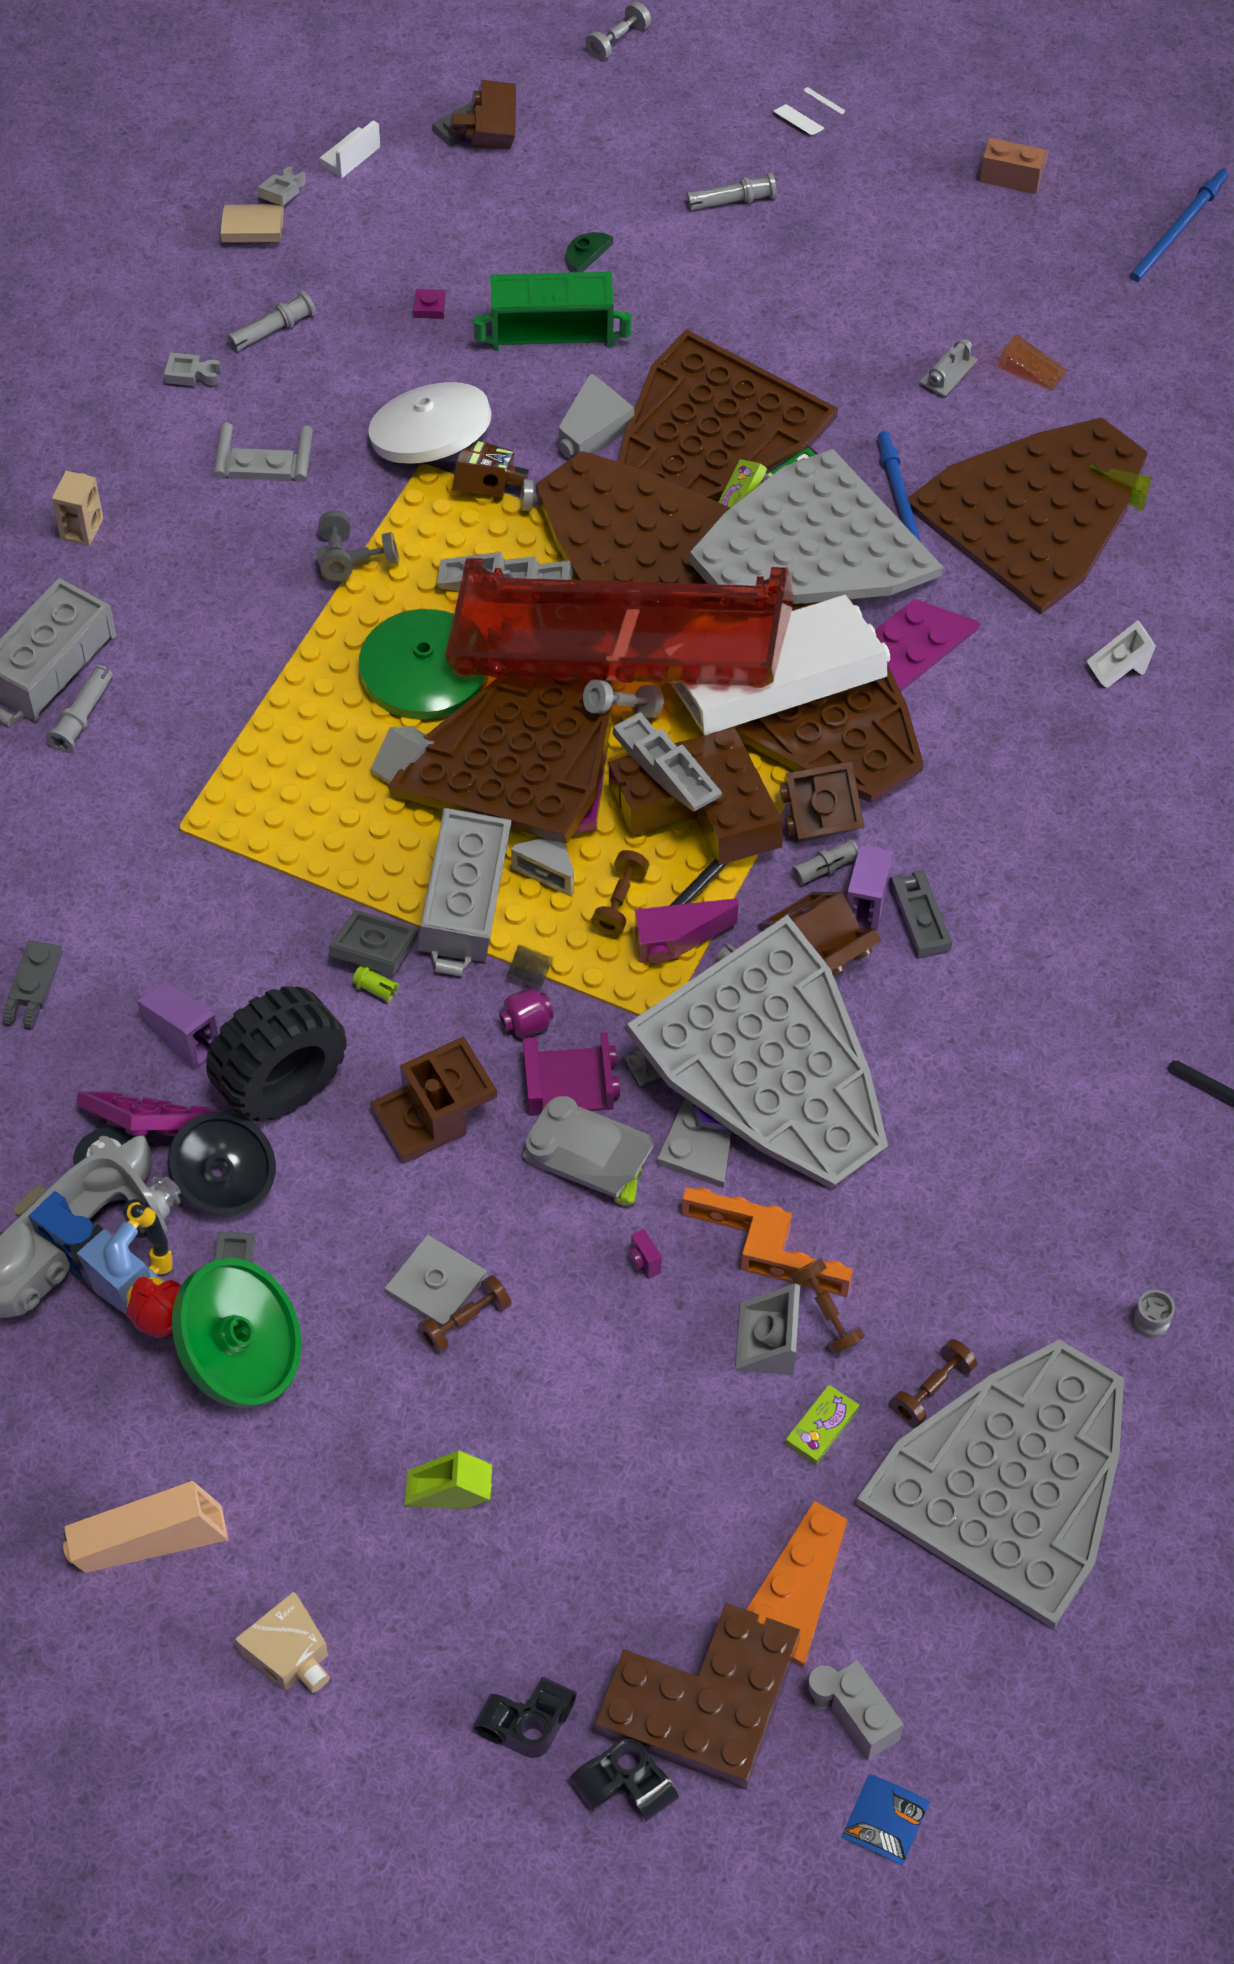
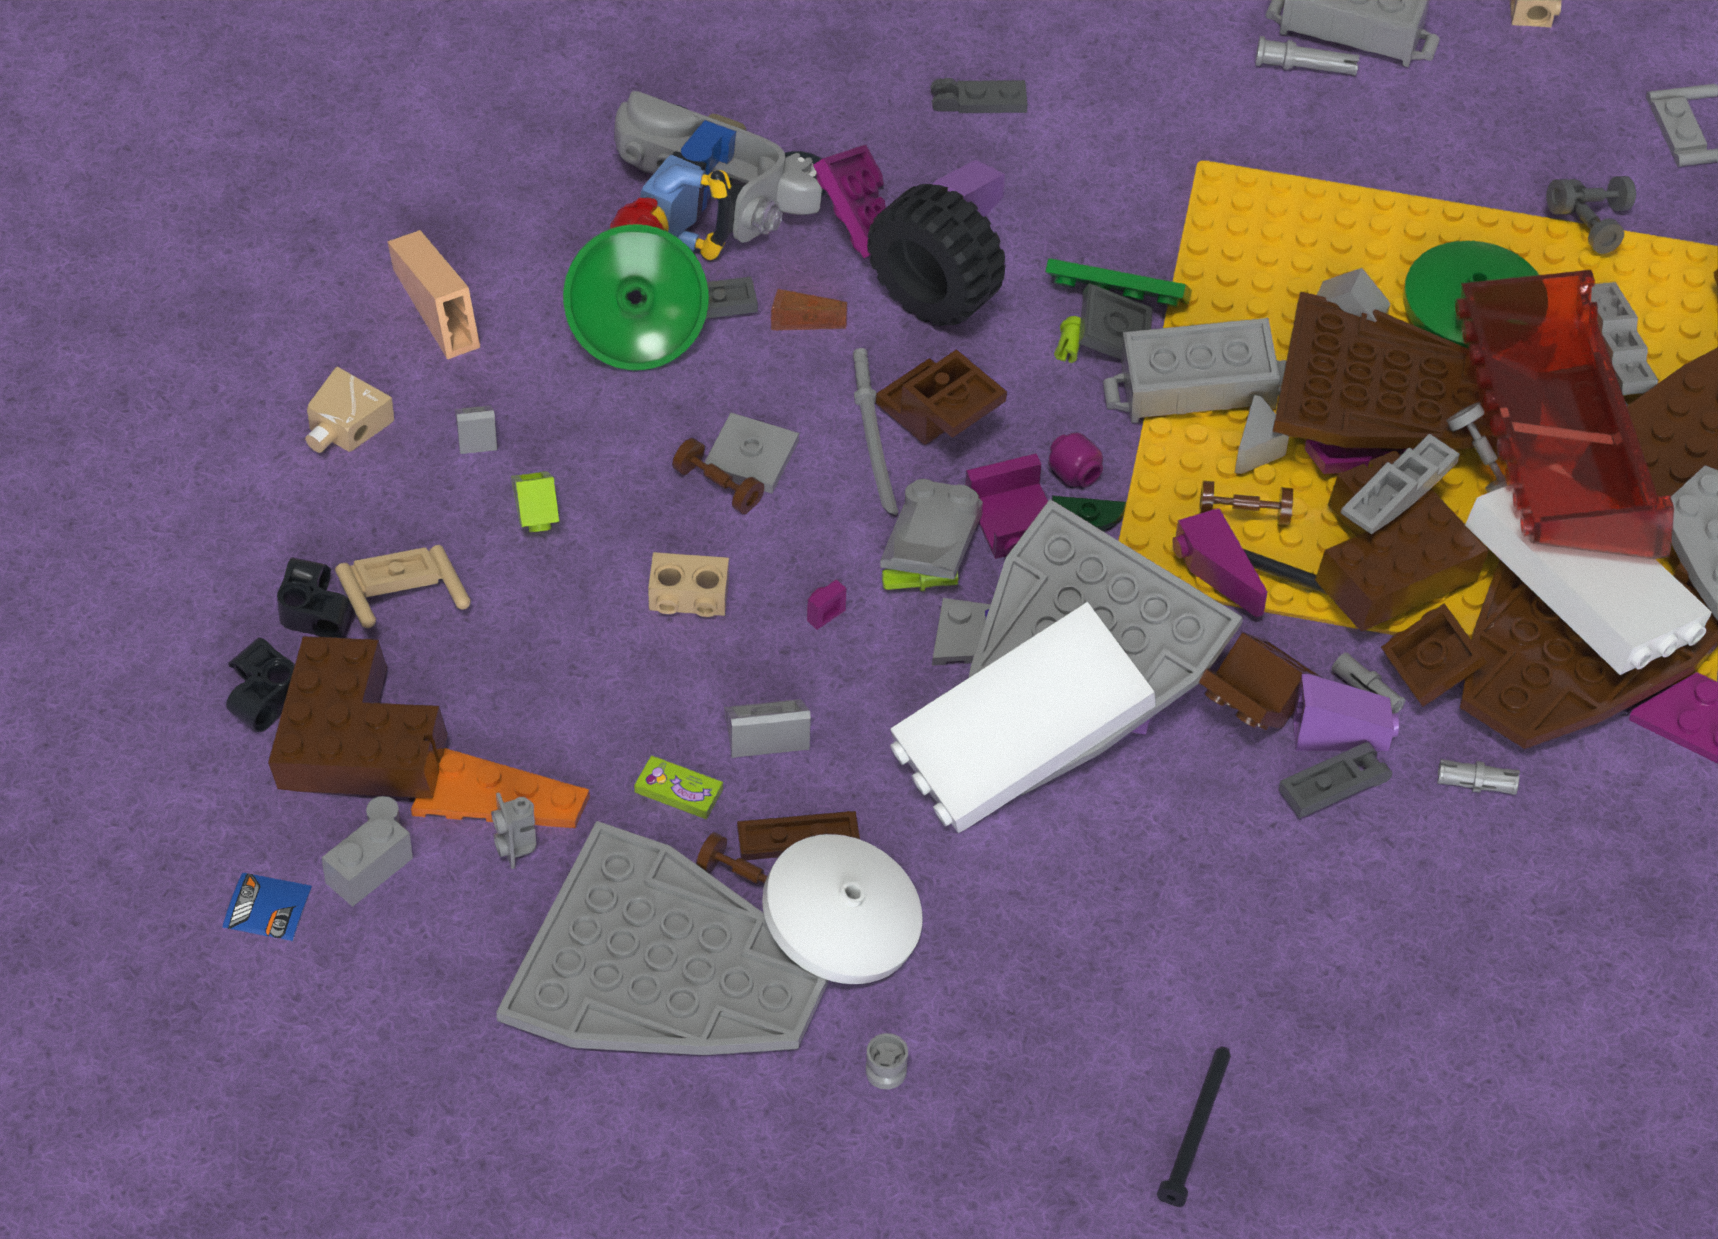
camera: 75 degrees right, 5 degrees down
(235, 1149) = (816, 238): black dish -> none
(273, 1201) = (806, 312): none -> clear orange slope
(333, 915) = (1132, 285): none -> green plate
(335, 1522) = (476, 429): none -> light grey slope
(440, 1174) = (865, 398): none -> light grey sword
(515, 1631) = (398, 573): none -> tan plate
(529, 967) = (1132, 451): clear smoke tile -> none
(585, 1022) = (1097, 512): none -> dark green plate
(588, 1365) = (688, 584): none -> tan brick
(766, 1238) = (873, 702): orange bracket -> none
(827, 1306) = (802, 754): reddish brown wheel -> none
(836, 1118) = (1021, 718): none -> white brick
(868, 1570) = (514, 828): none -> light grey hinge
(895, 1336) = (774, 835): none -> reddish brown tile
(936, 813) = (1478, 776): none -> light grey pin
(996, 1312) = (842, 909): none -> white dish

